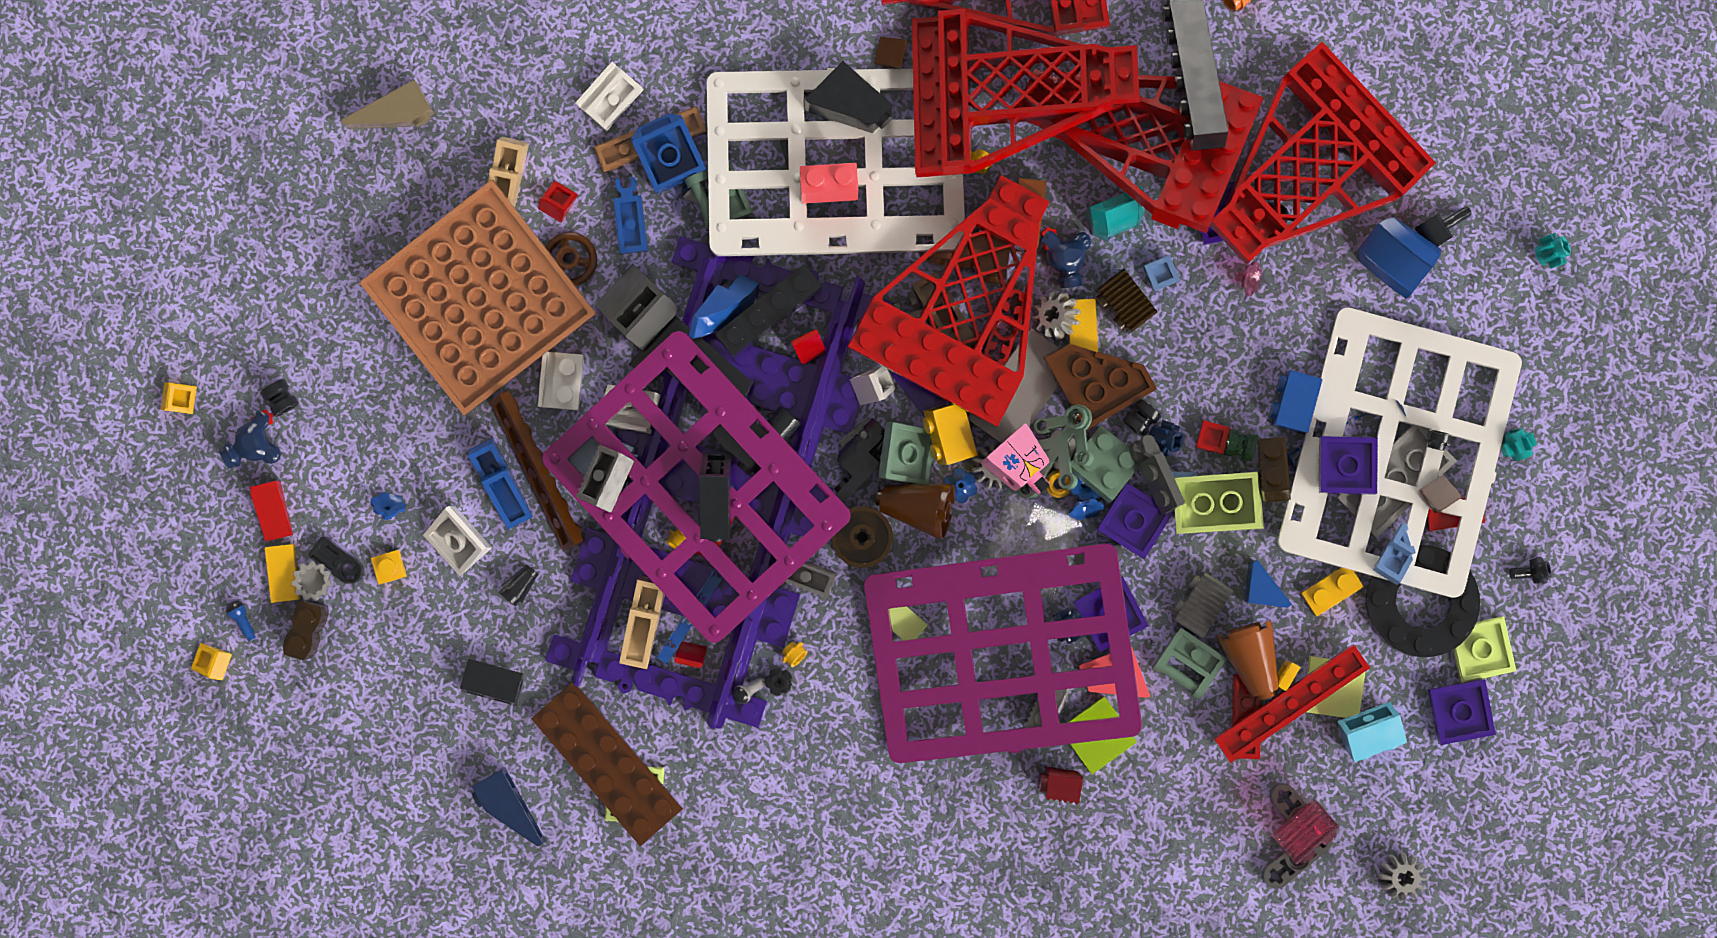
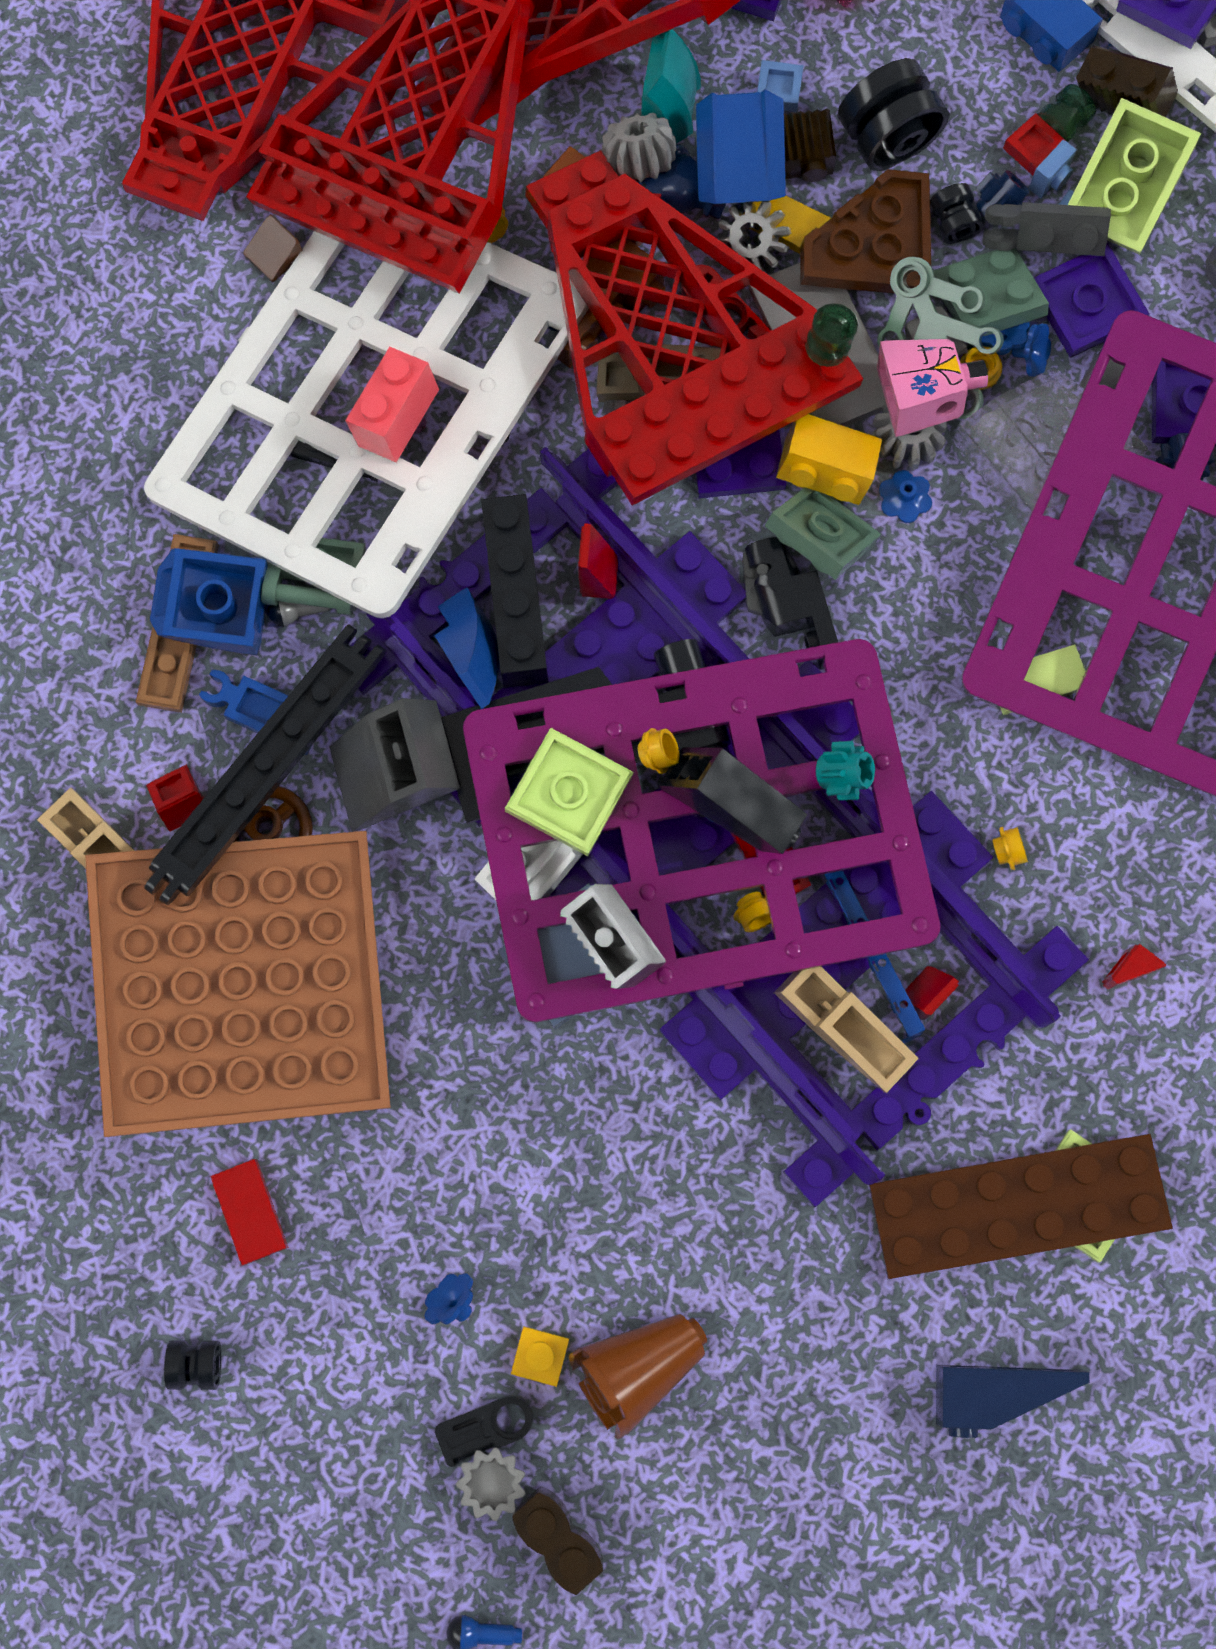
camera: 60 degrees left, 10 degrees down
(178, 398) = (95, 1522): yellow slope -> none
(251, 443) = (232, 1448): dark blue animal -> none
(271, 510) = (349, 1482): red slope -> none
(280, 567) = (450, 1526): yellow tile -> none
(370, 377) = (249, 1212): none -> red tile
(410, 620) = (637, 1369): none -> dark orange cone
(456, 540) = (562, 1230): white slope -> none
(492, 682) = (802, 1303): black hinge -> none
(499, 483) = (519, 1115): blue slope -> none
(518, 585) = (682, 1178): black cone -> none
(531, 462) = (534, 1052): reddish brown plate -> none
(560, 381) = (428, 942): white plate -> none
(596, 240) = (262, 766): none -> black hinge
(609, 96) = (82, 640): white plate -> none
(670, 409) = (569, 791): none -> yellowish green tile
(719, 442) = (658, 750): none -> yellow plate
(743, 693) = (1030, 946): piece -> none
(766, 544) = (845, 770): none -> teal gear
(766, 752) = (1133, 964): none -> red slope
(784, 676) = (1029, 901): black plate -> none
(813, 578) = (928, 751): flat silver brick -> none
(849, 100) = (301, 323): black slope -> none
(873, 385) = (701, 522): white slope -> none
(874, 548) = (923, 639): dark brown wheel -> none
(919, 506) = (904, 555): reddish brown cone -> none
(1008, 394) = (831, 334): none -> clear green wheel
(1065, 221) = (640, 146): none -> light grey gear
(1095, 280) = (740, 147): none -> blue slope
(1174, 349) = (893, 114): none -> black wheel
(1201, 458) = (1054, 170): none -> medium blue plate

